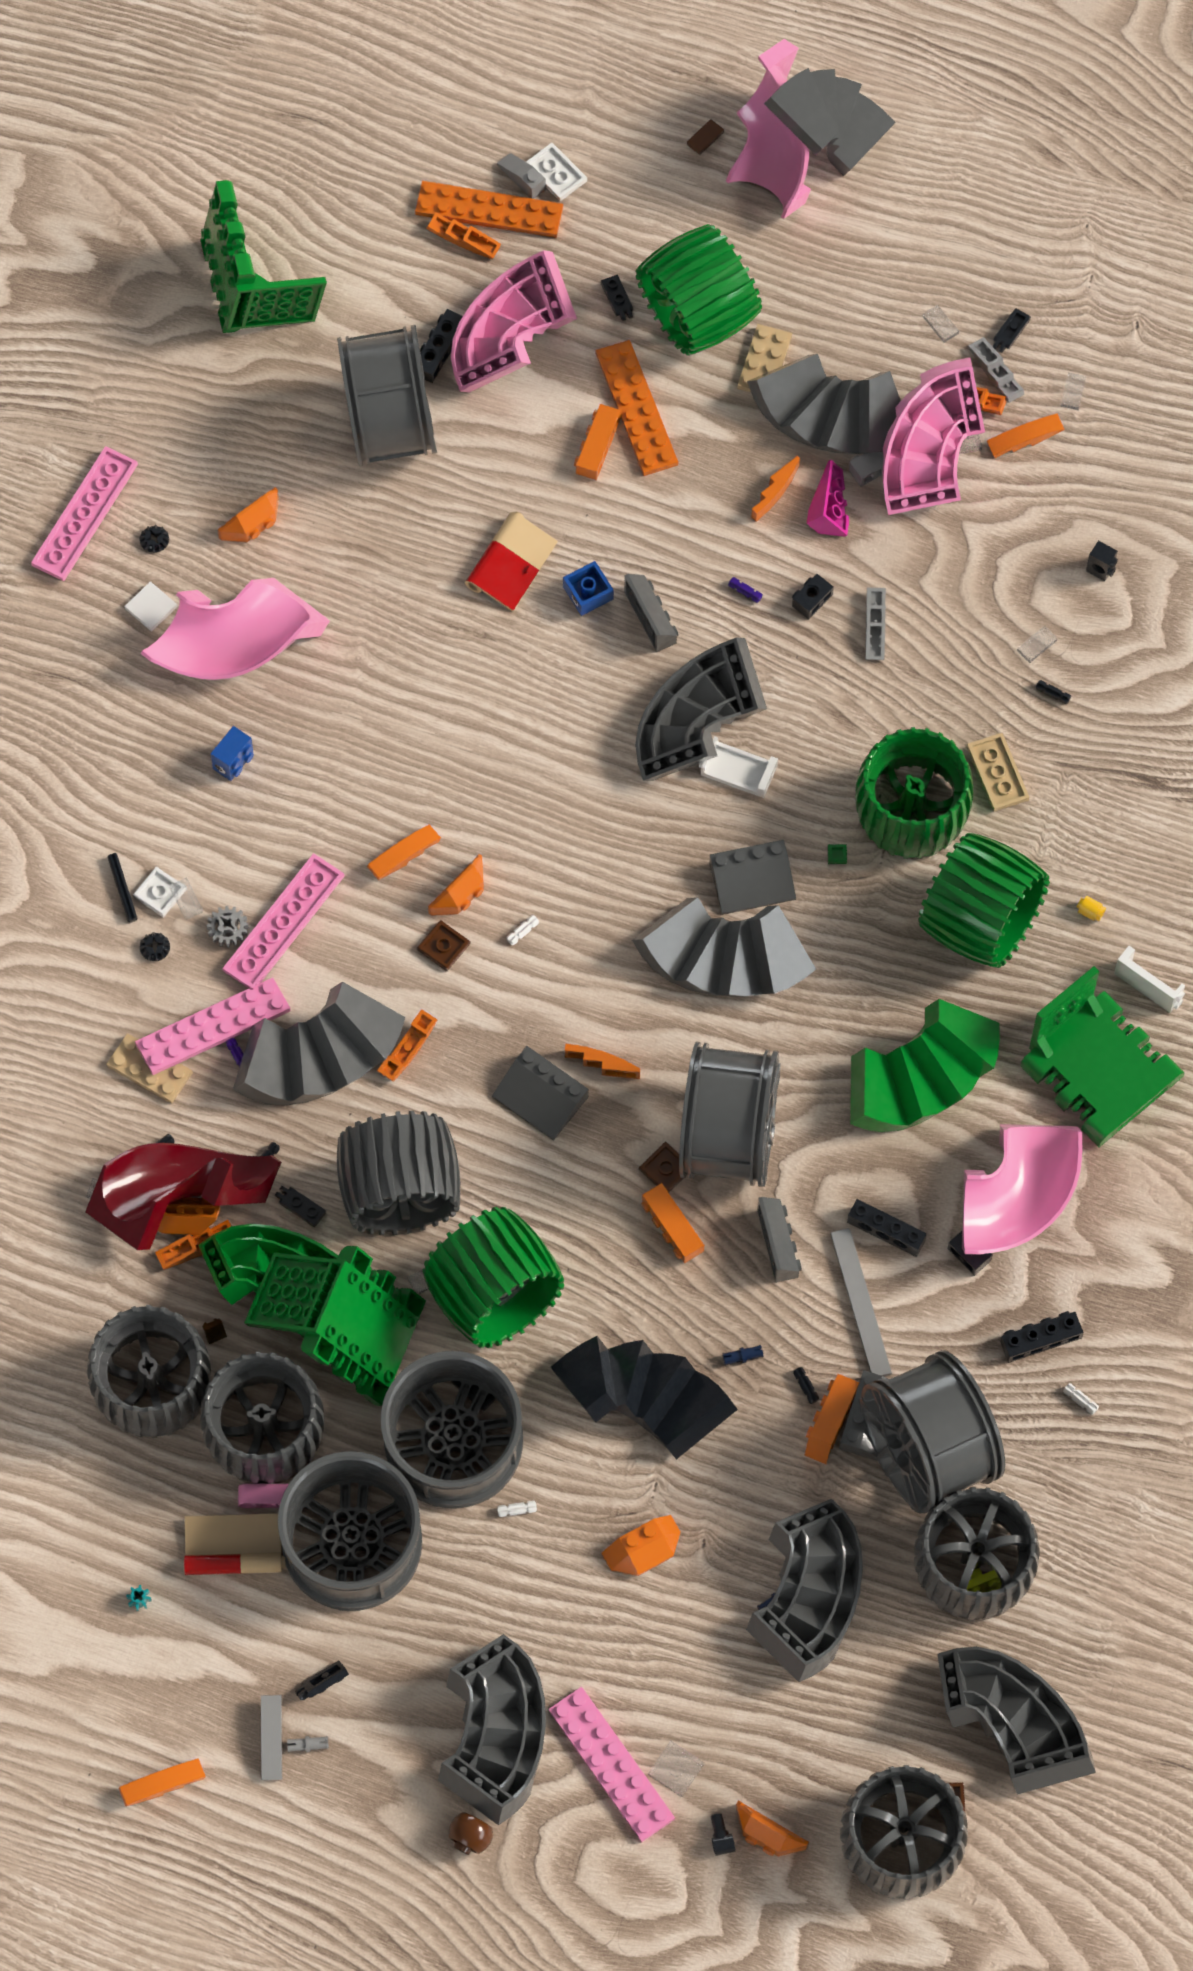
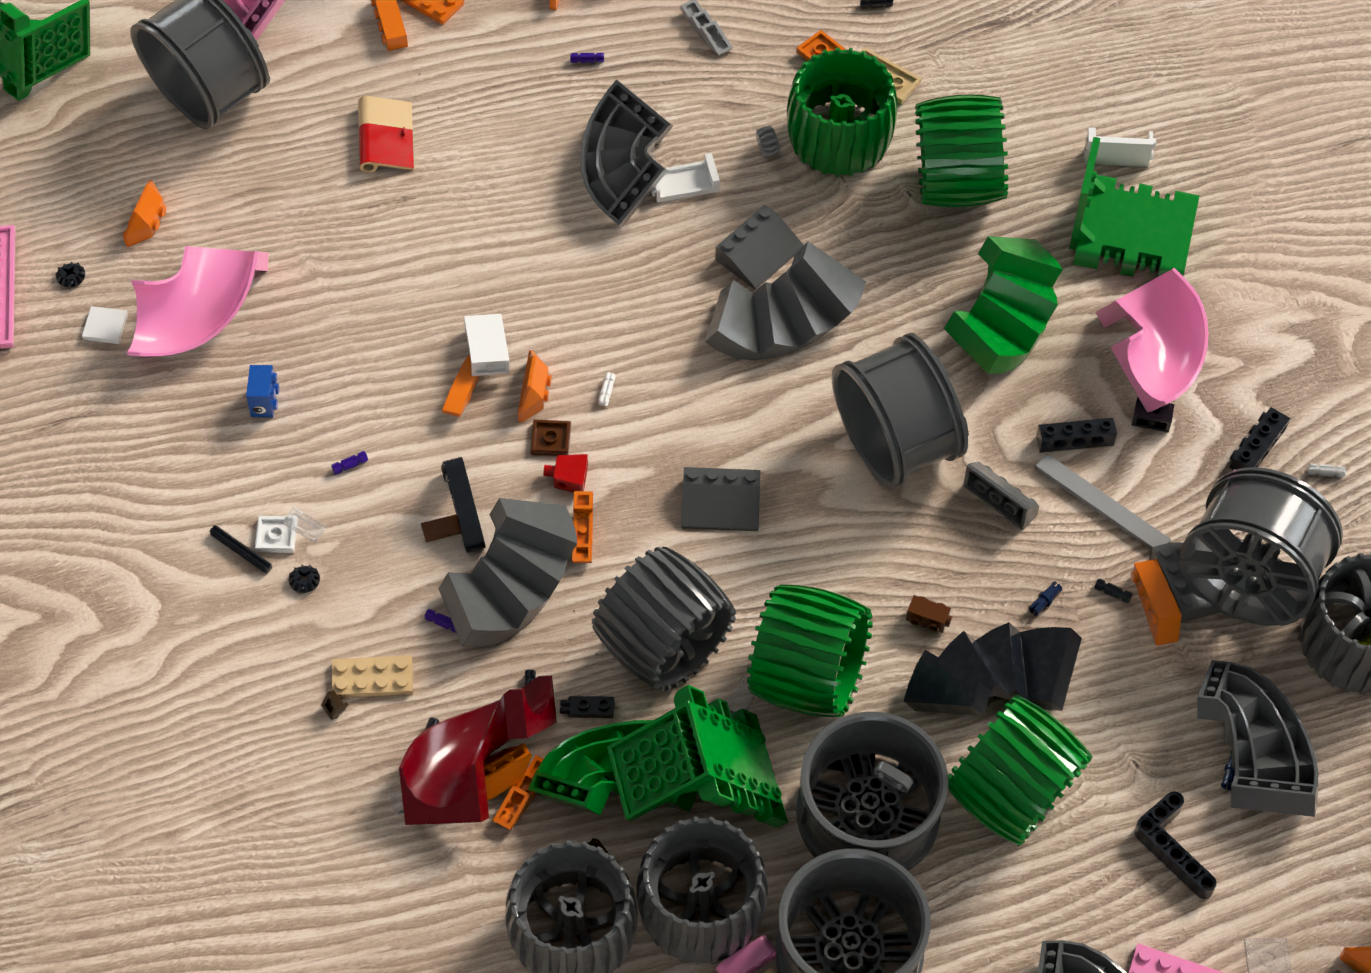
camera: 35 degrees left, 10 degrees down
(100, 1073) = (333, 705): none -> dark brown tile
(212, 1026) = (402, 611): bright pink plate -> none
(227, 918) = (354, 523): light grey gear -> none
(262, 863) = (349, 462): none -> dark purple axle
(283, 922) = (402, 496): bright pink plate -> none
(295, 971) = (440, 528): none -> reddish brown tile
(330, 933) = (456, 476): none -> black beam
(433, 988) = (569, 472): none -> red torso
(447, 825) = (487, 344): none -> white panel
(463, 1427) = (893, 776): none -> dark grey beam
(517, 1508) = (964, 834): white axle -> none
(579, 1486) = (1017, 770): none -> green wheel
(588, 588) = (464, 118): blue brick -> none
(610, 1064) = (756, 445): orange slope -> none
(634, 1309) = (929, 614): none -> reddish brown brick
(643, 1547) = (1093, 799): orange wedge -> none
(649, 611) = (525, 110): dark grey slope -> none
(663, 1167) = (865, 497): reddish brown tile -> none
(670, 1628) = (1172, 847): none -> black beam
(673, 1223) = (908, 531): orange brick -> none
(810, 605) = (643, 33): black brick -> none
(837, 853) = (809, 197): green tile -> none
(838, 776) = (767, 141): none -> light grey gear
(961, 711) = (816, 44): none -> orange plate
(1091, 908) = (1031, 127): yellow brick -> none

